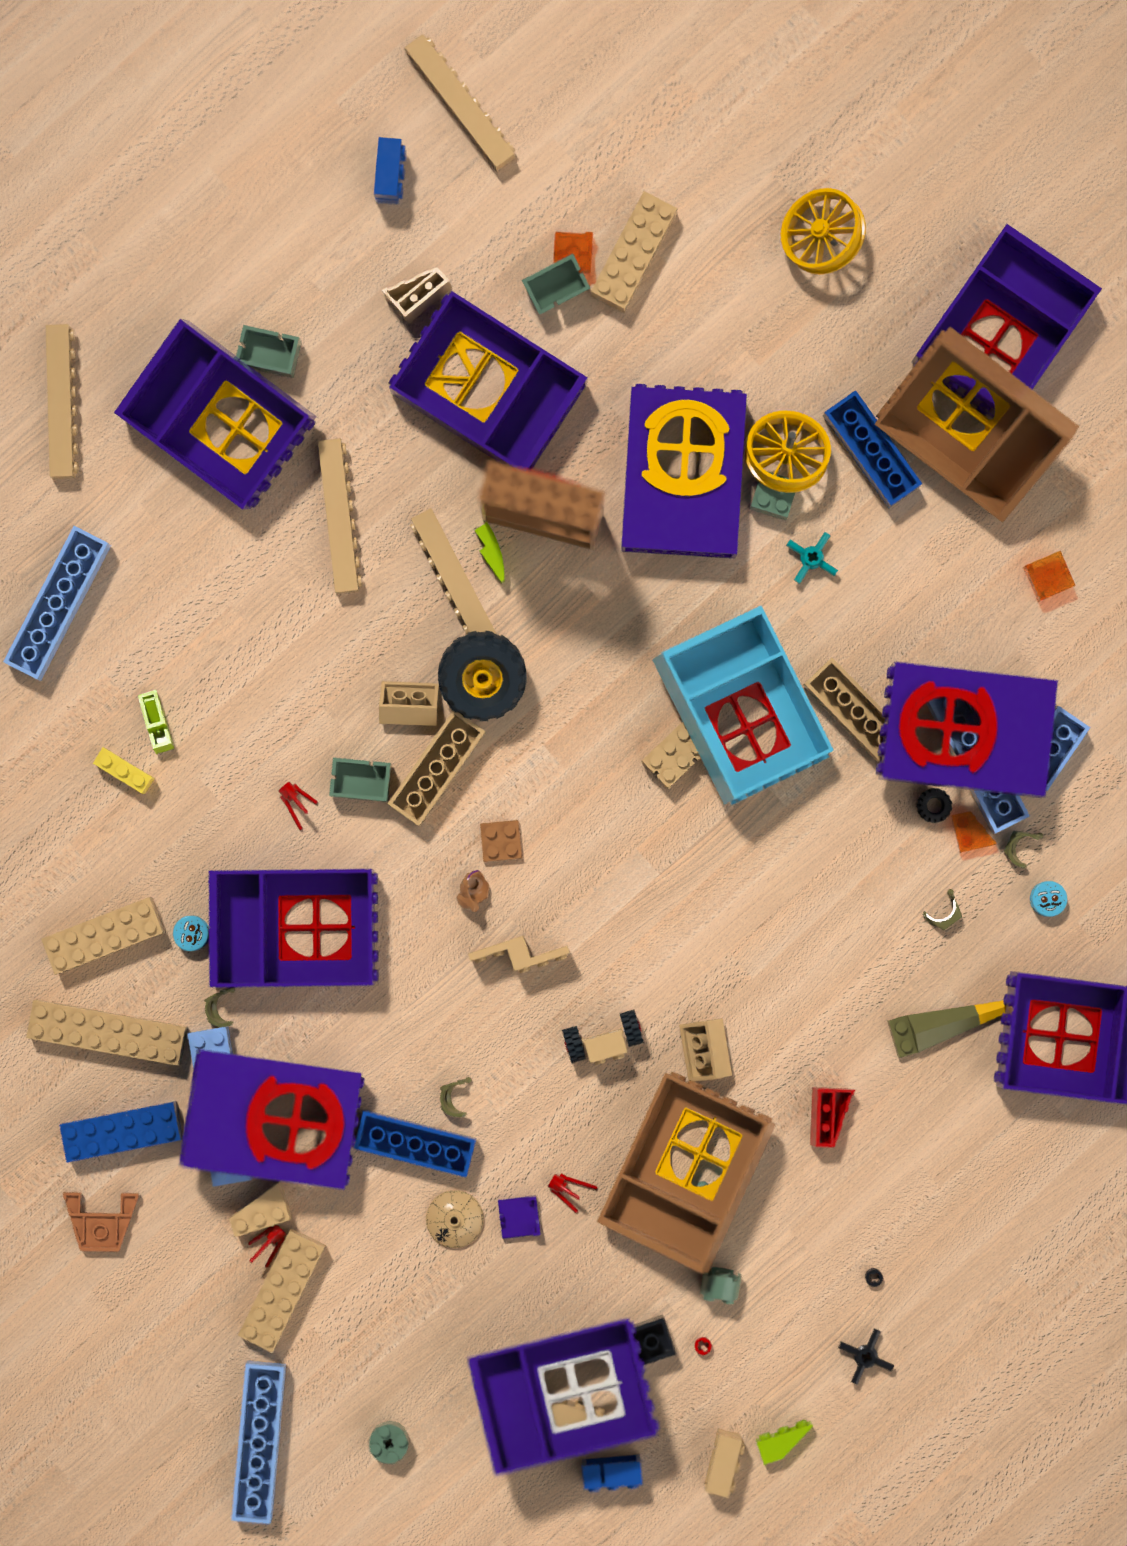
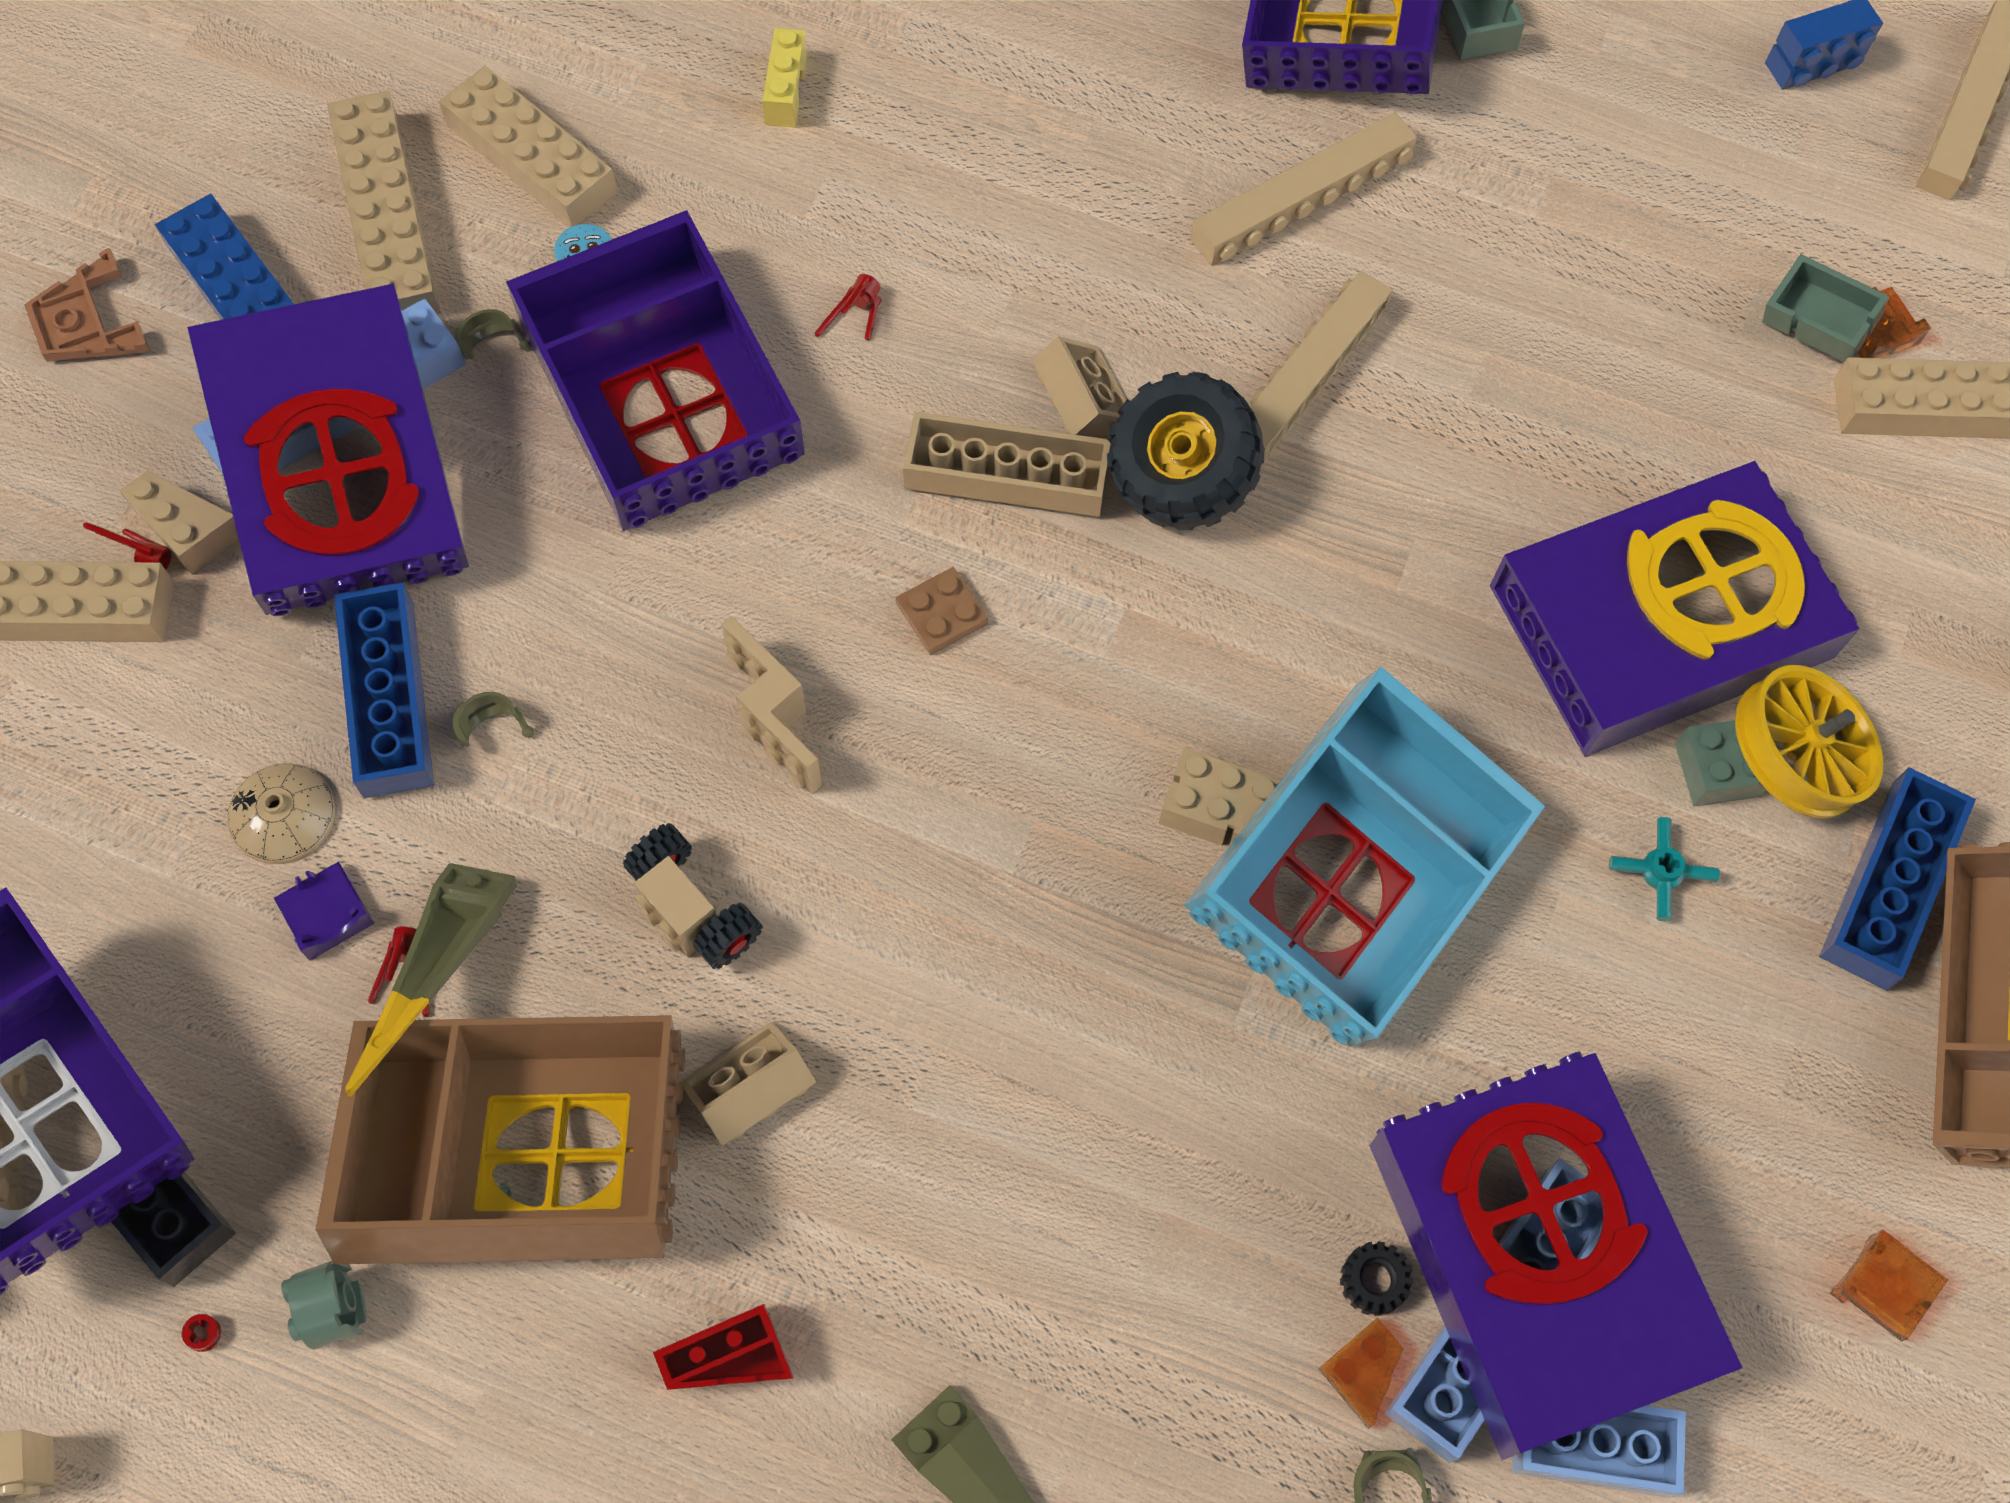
camera: 60 degrees right, 20 degrees down
(156, 722) = (875, 91): lime slope -> none
(360, 780) = (934, 368): sand green piece -> none
(417, 294) = (1683, 151): tan wedge -> none
(473, 890) = (843, 597): medium nougat hair -> none
(491, 551) = (1379, 402): lime slope -> none
(535, 392) = (1612, 356): dark purple panel -> none
(541, 505) = (1505, 375): medium nougat panel -> none
(560, 1154) = (455, 919): none -> olive plate
(848, 705) = (1466, 1027): tan brick -> none
(944, 923) = (1200, 1413): olive helmet -> none

